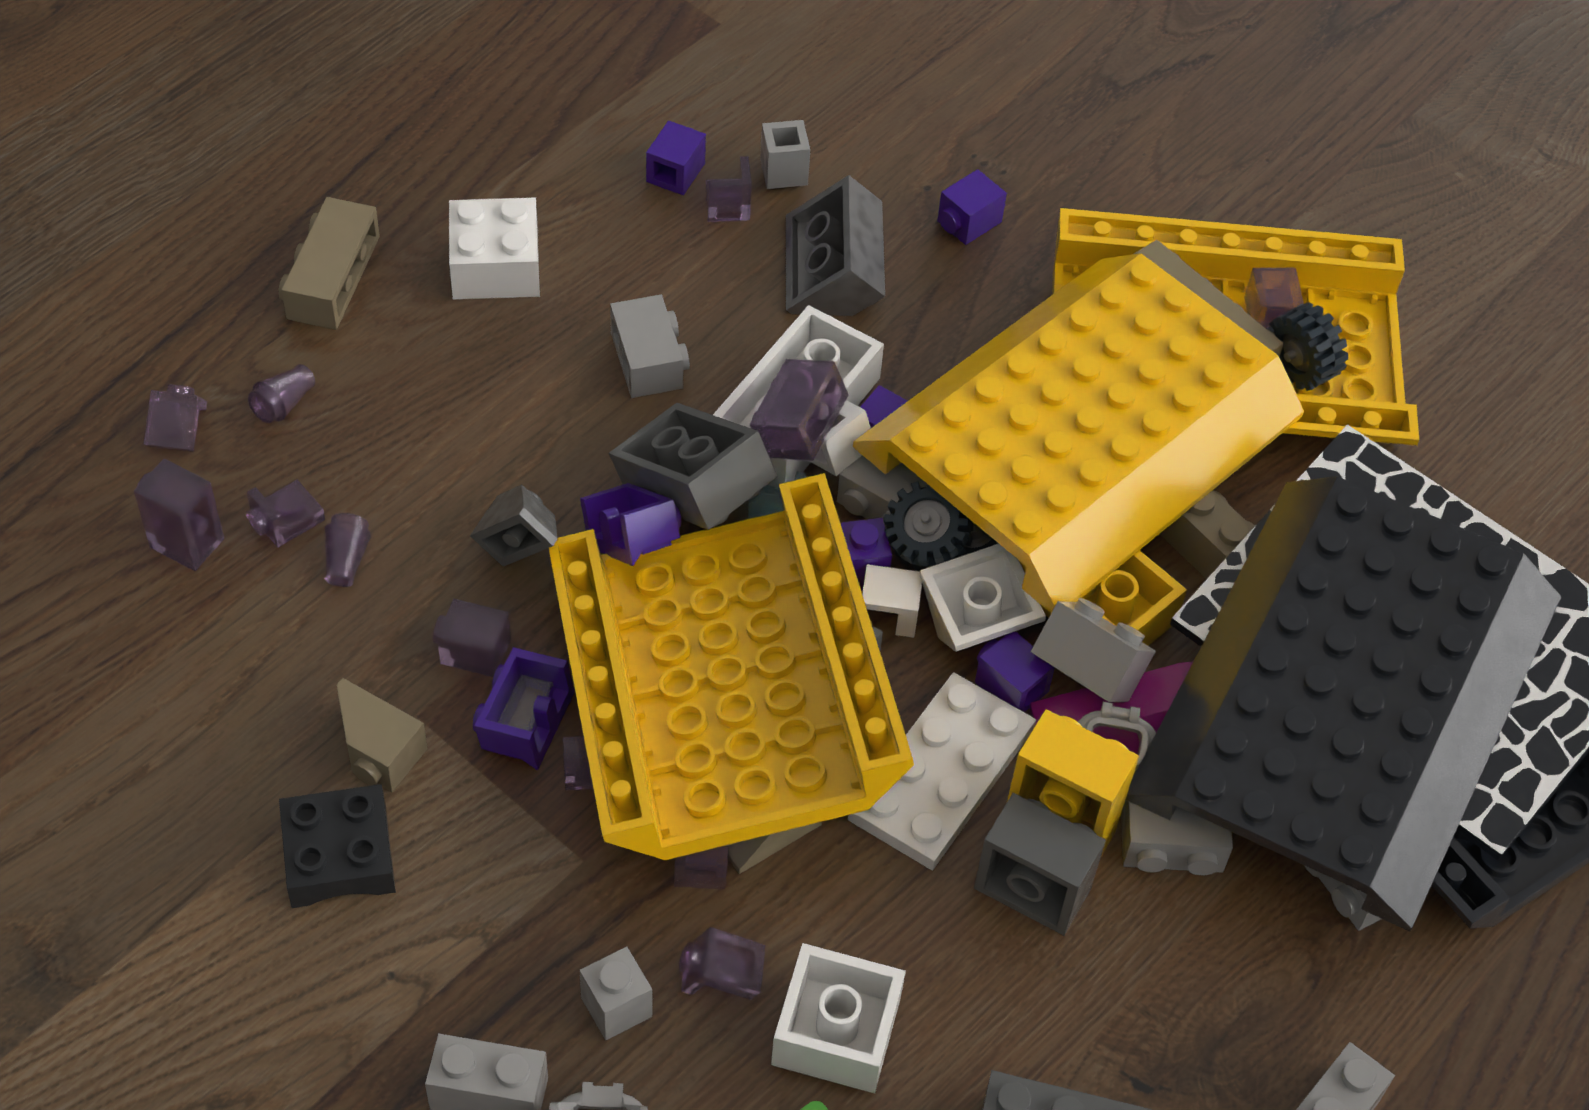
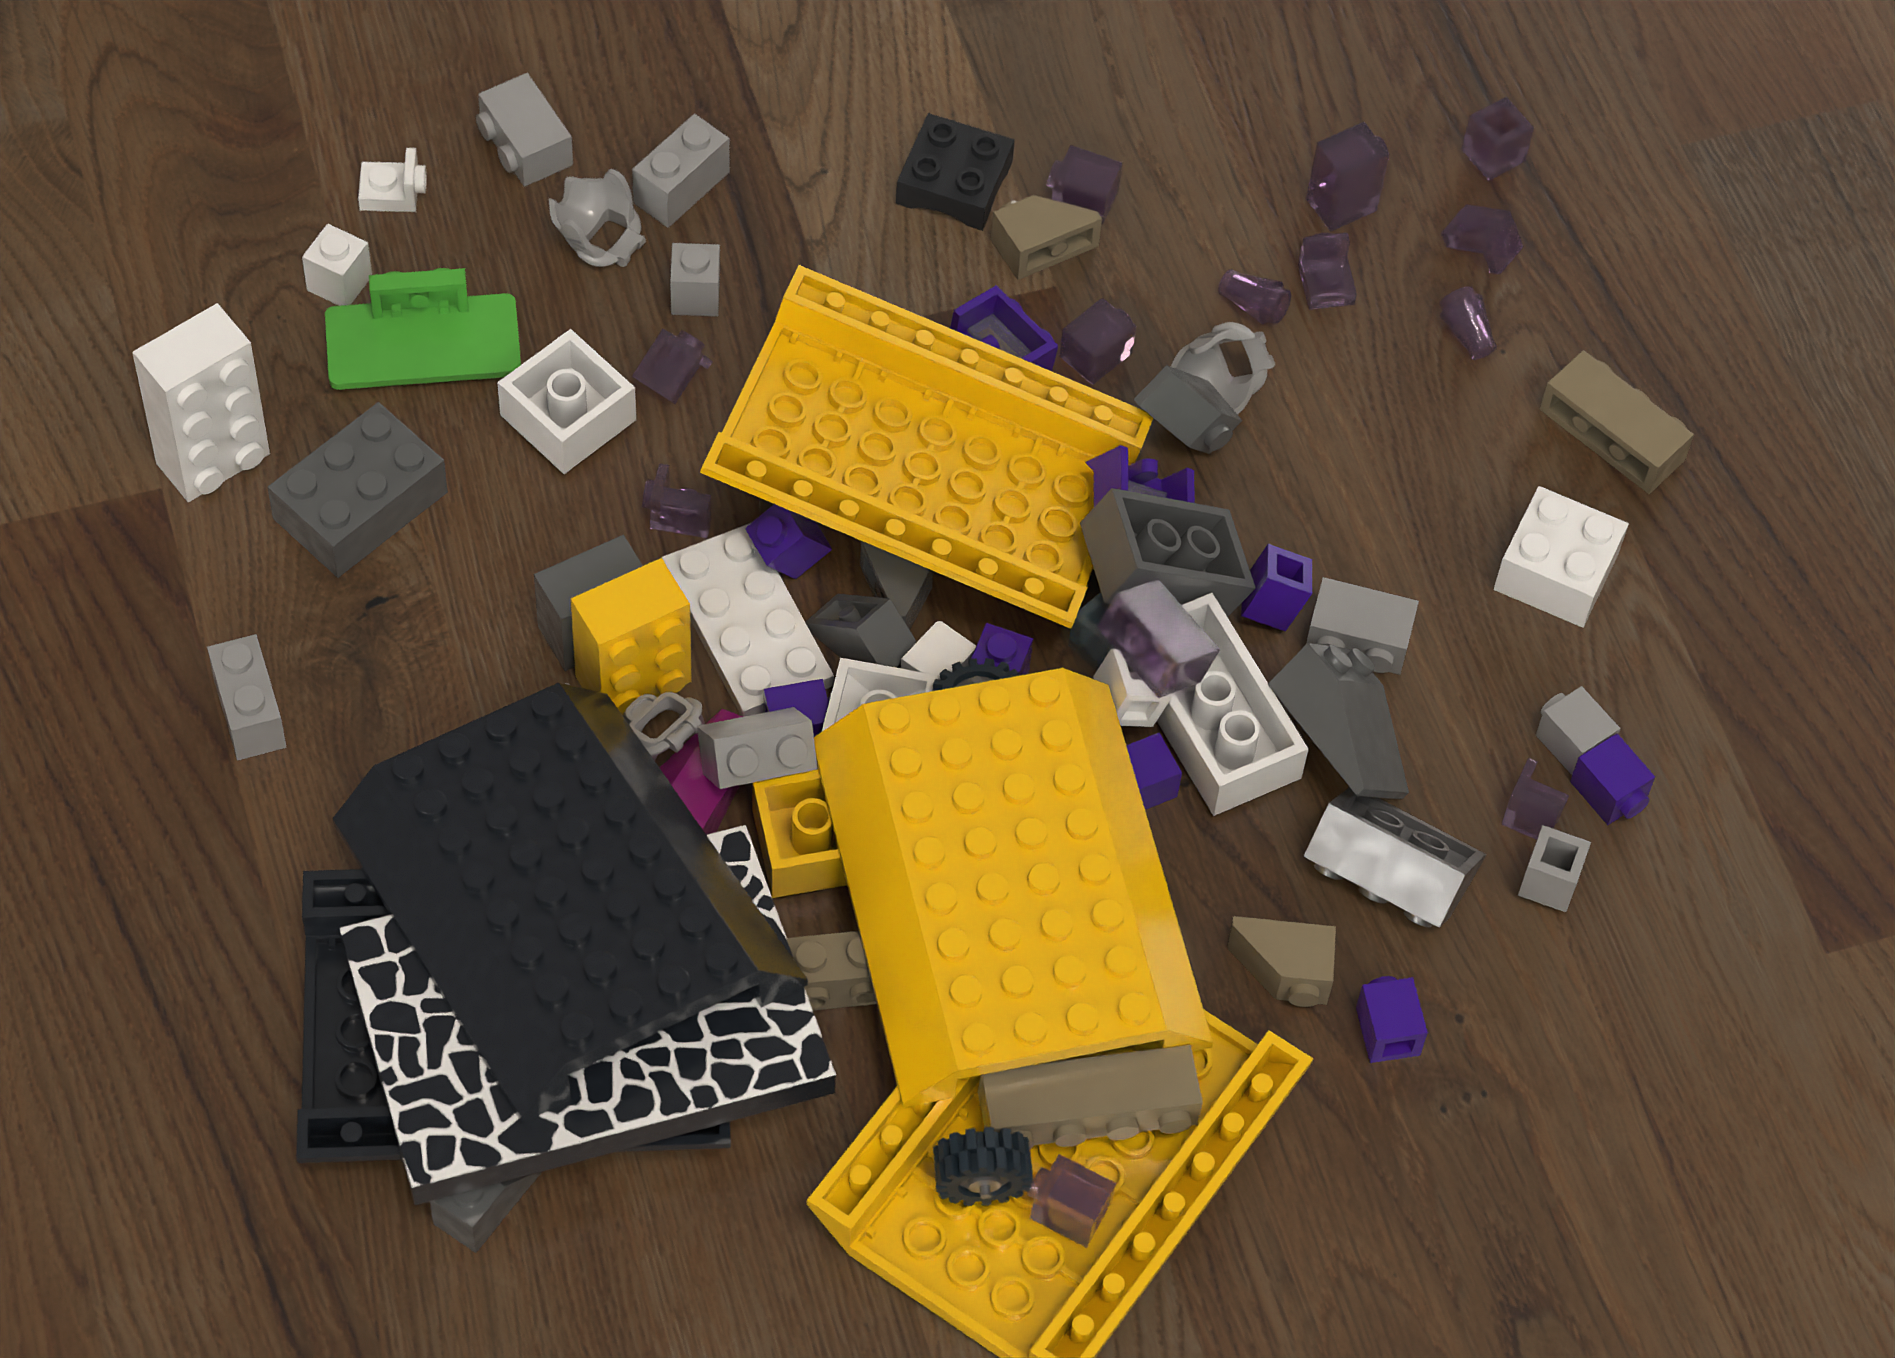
camera: 120 degrees right, 5 degrees up
(63, 433) = (1497, 138): none -> brick
(292, 727) = (1086, 180): none -> brick
(448, 532) = (1205, 360): none -> light grey helmet
(648, 189) = (1574, 726): none -> light grey brick
(652, 391) = (1281, 587): none -> dark purple brick
(749, 316) = (1345, 715): none -> dark grey slope
(879, 876) = (676, 509): none -> bracket
(905, 656) = (862, 629): none -> dark grey slope
(968, 277) = (1286, 957): none -> dark tan slope

